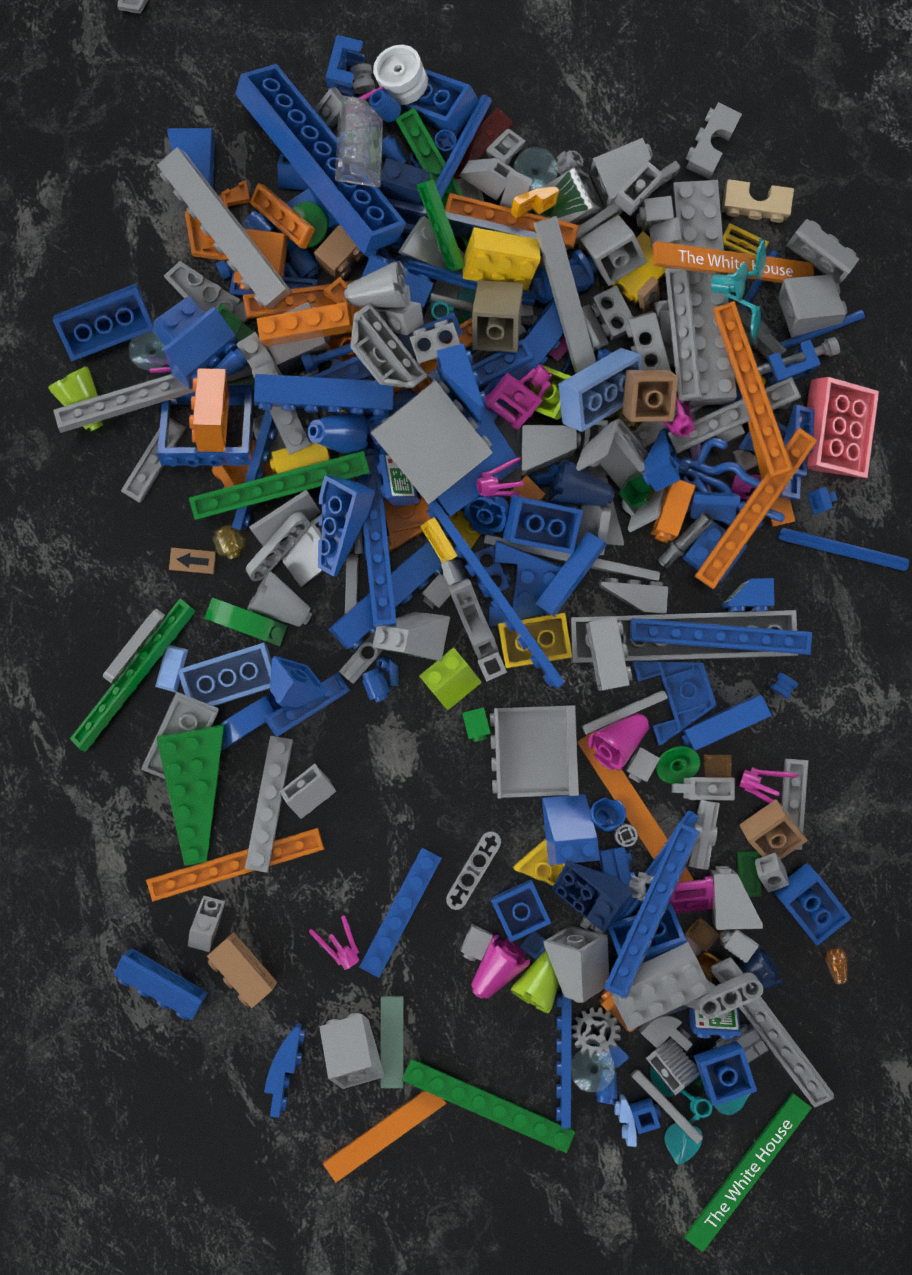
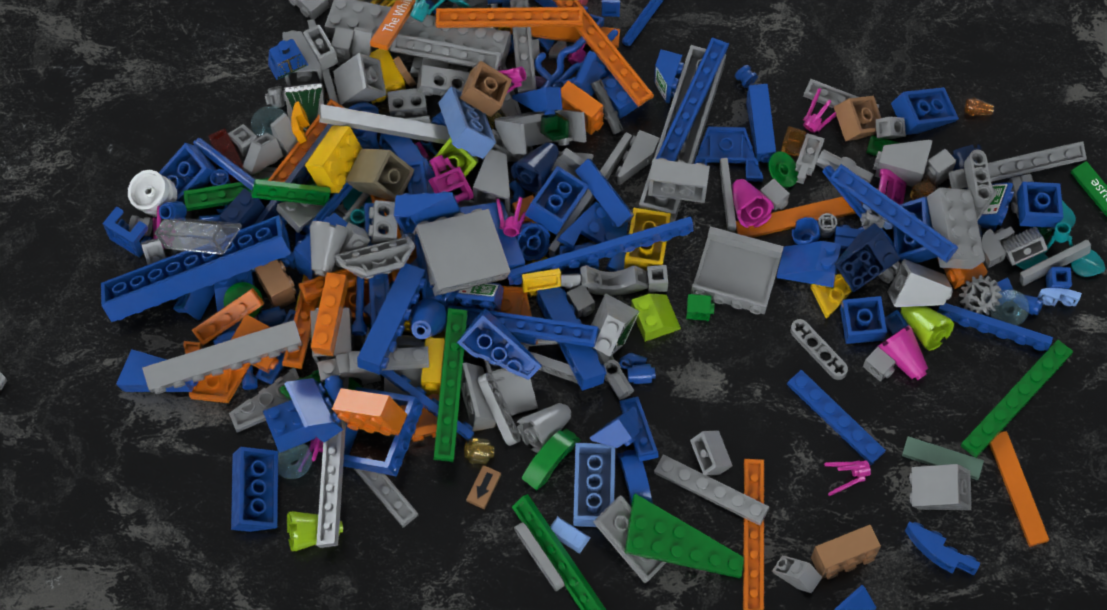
camera: 70 degrees left, 20 degrees down
(603, 155) = (285, 59): none -> blue torso

